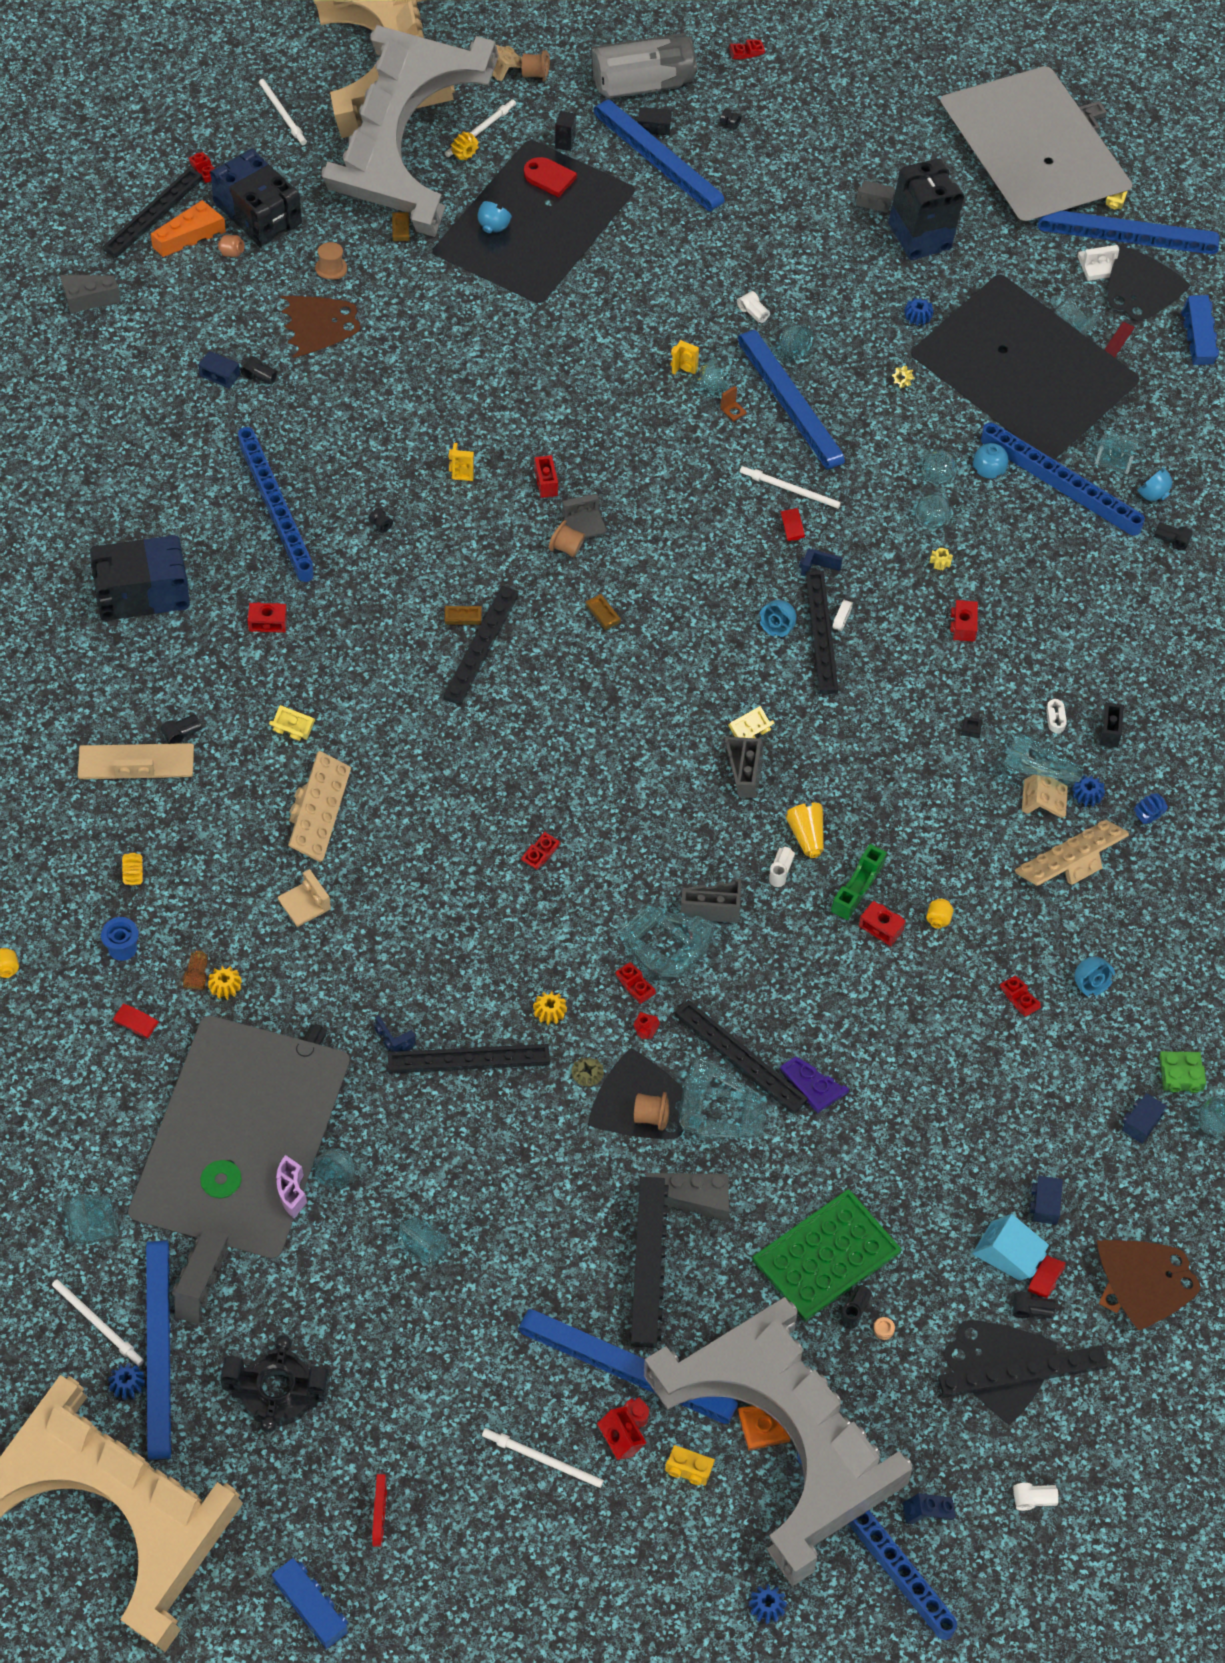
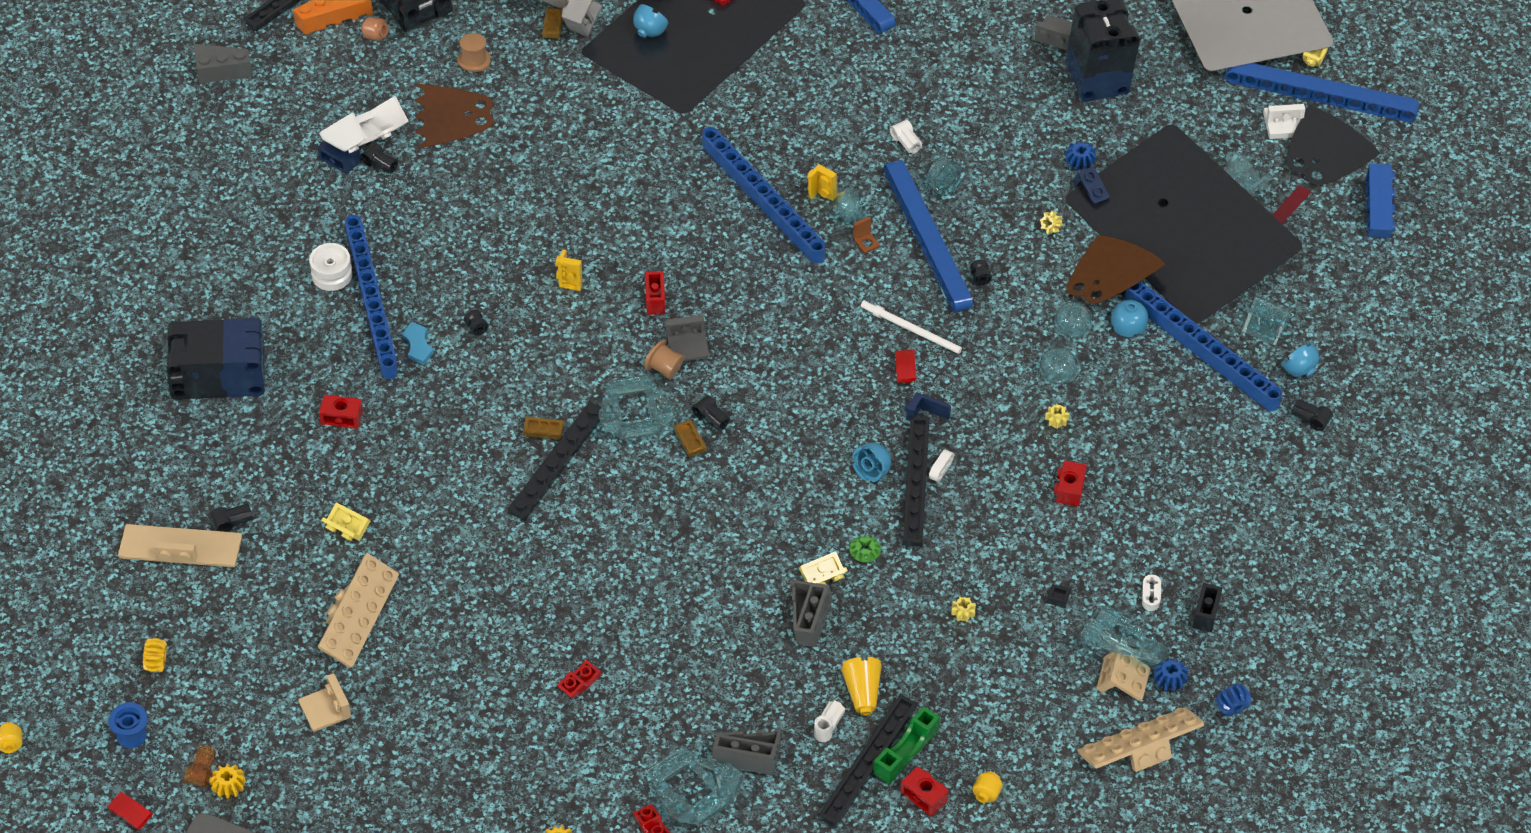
camera: 10 degrees right, 5 degrees down
(232, 479) = (330, 266): none -> white wheel
(242, 341) = (358, 130): none -> white windscreen
(324, 538) = (416, 336): none -> dark azure tile
(570, 598) = (660, 414): none -> clear light blue windscreen
(615, 583) = (708, 410): none -> black piece
(630, 374) = (763, 195): none -> blue beam
(787, 706) = (865, 555): none -> bright green gear
(823, 900) = (863, 766): none -> black plate
(846, 429) = (980, 272): none -> black wheel
(887, 748) = (963, 609): none -> light yellow gear
(935, 337) = (1092, 184): none -> dark blue bracket
(970, 411) = (1115, 265): none -> reddish brown piece

